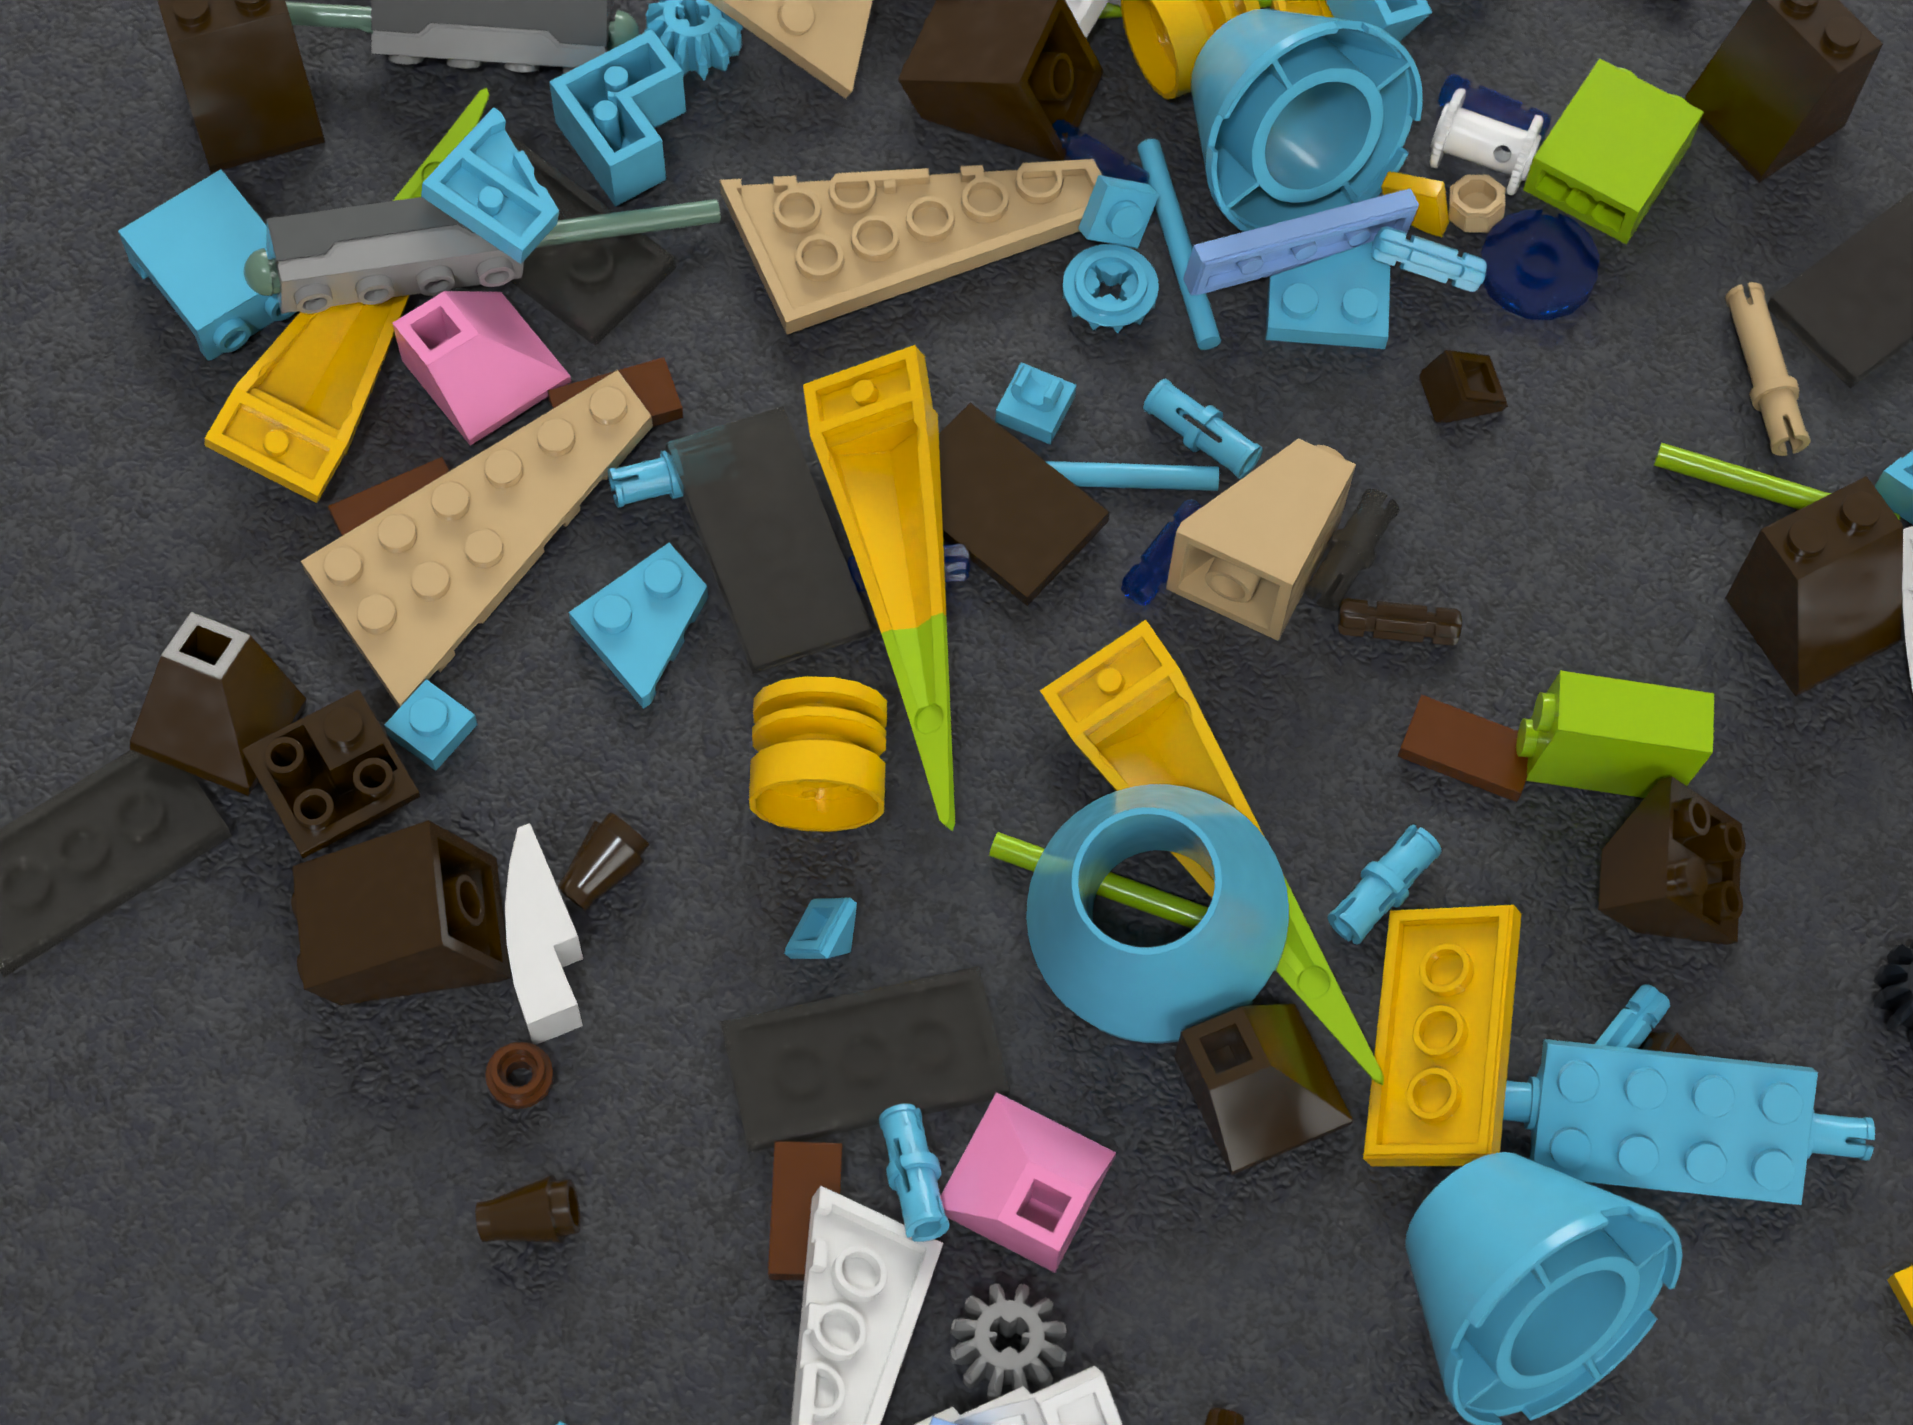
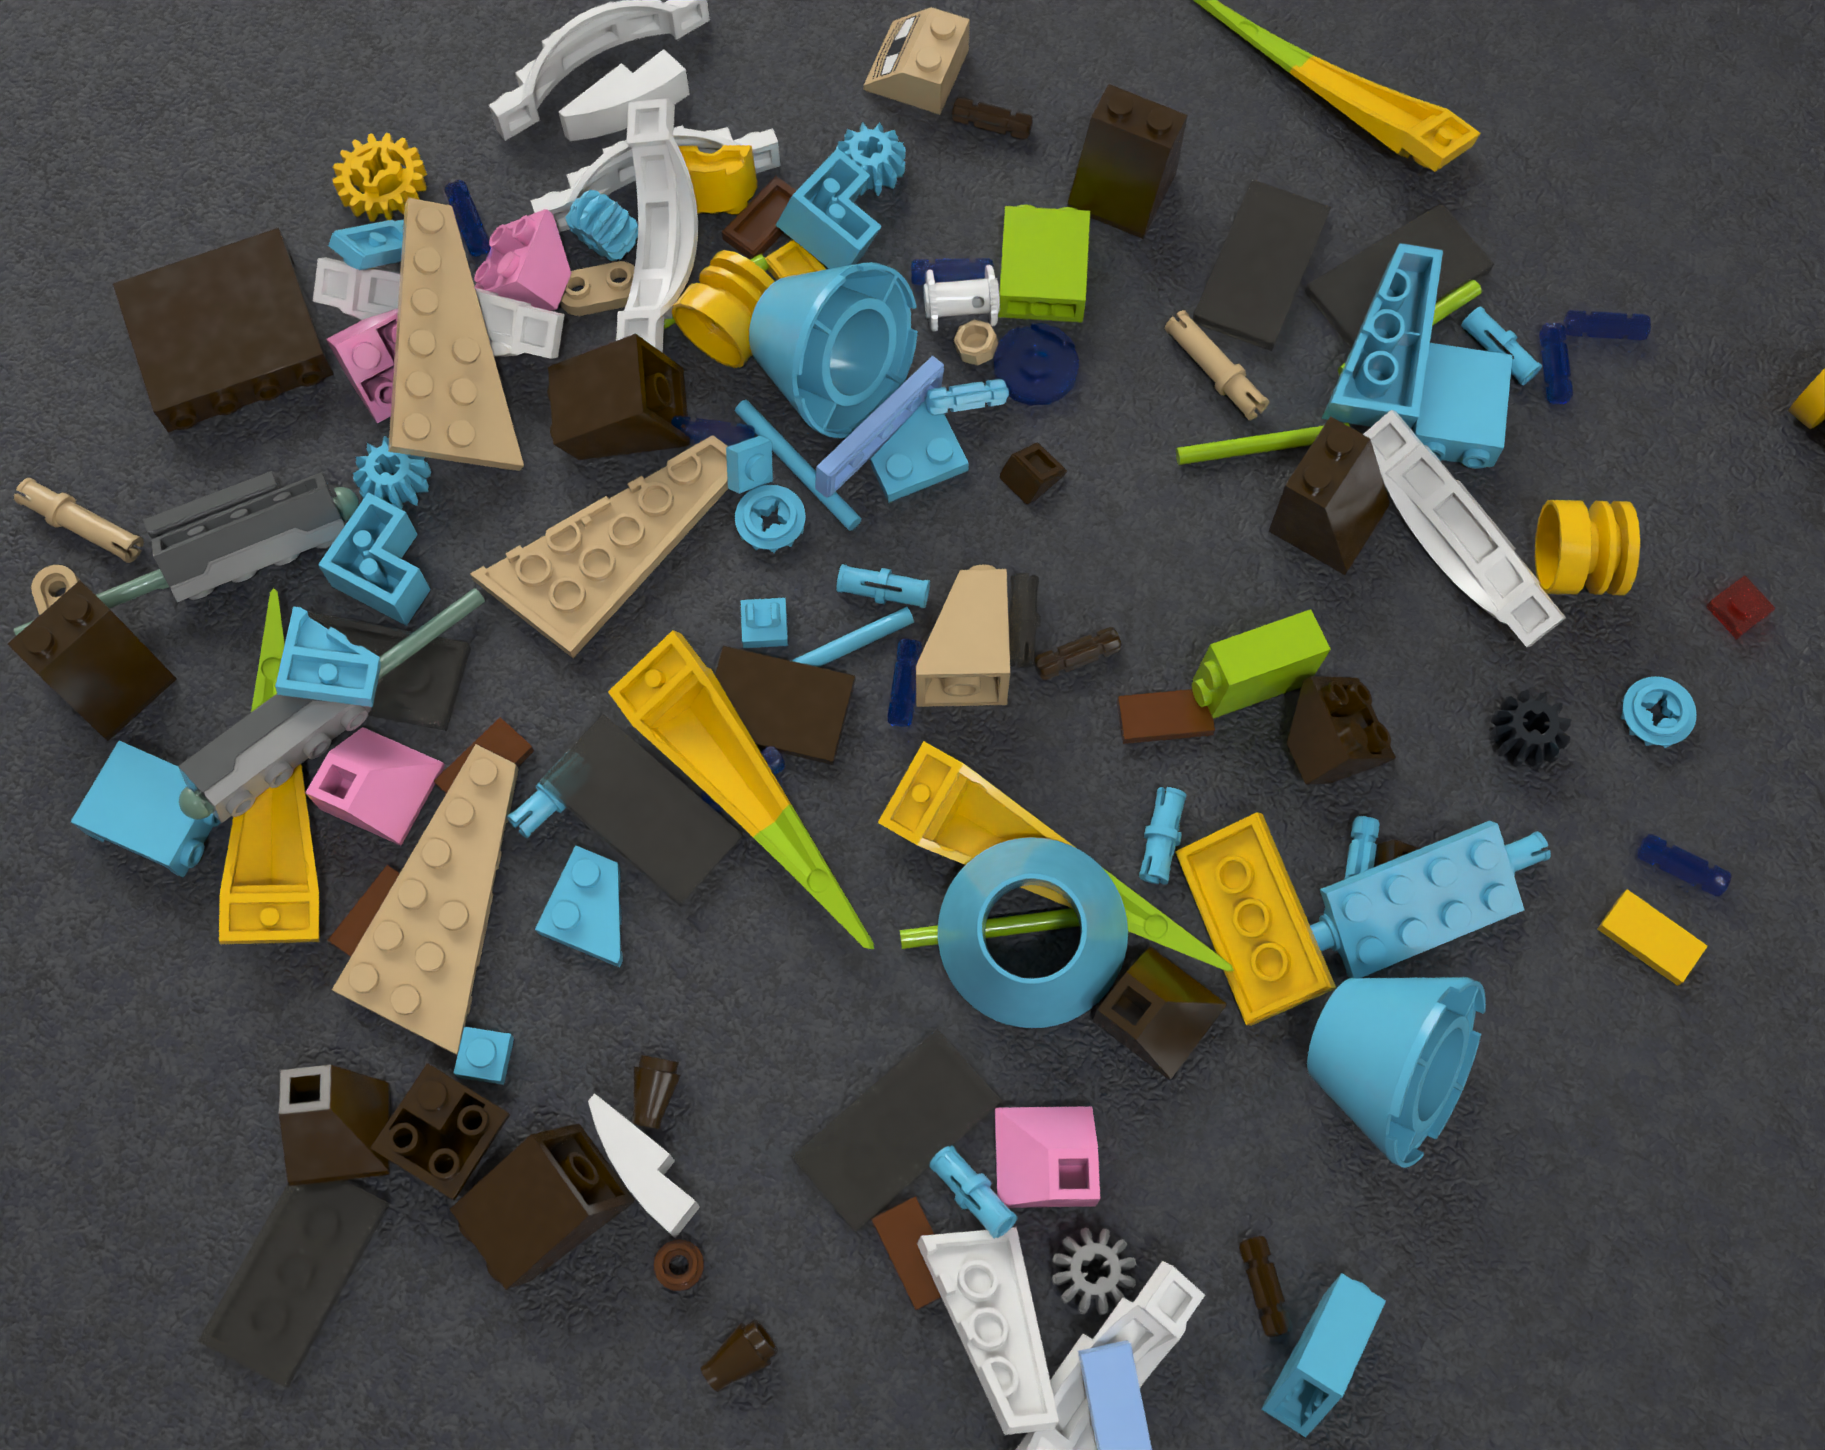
camera: 25 degrees left, 5 degrees up
(818, 754) = (759, 943): yellow wheel -> none
(824, 930) = (824, 1058): medium azure slope -> none
(1431, 196) = (944, 352): yellow tile -> none

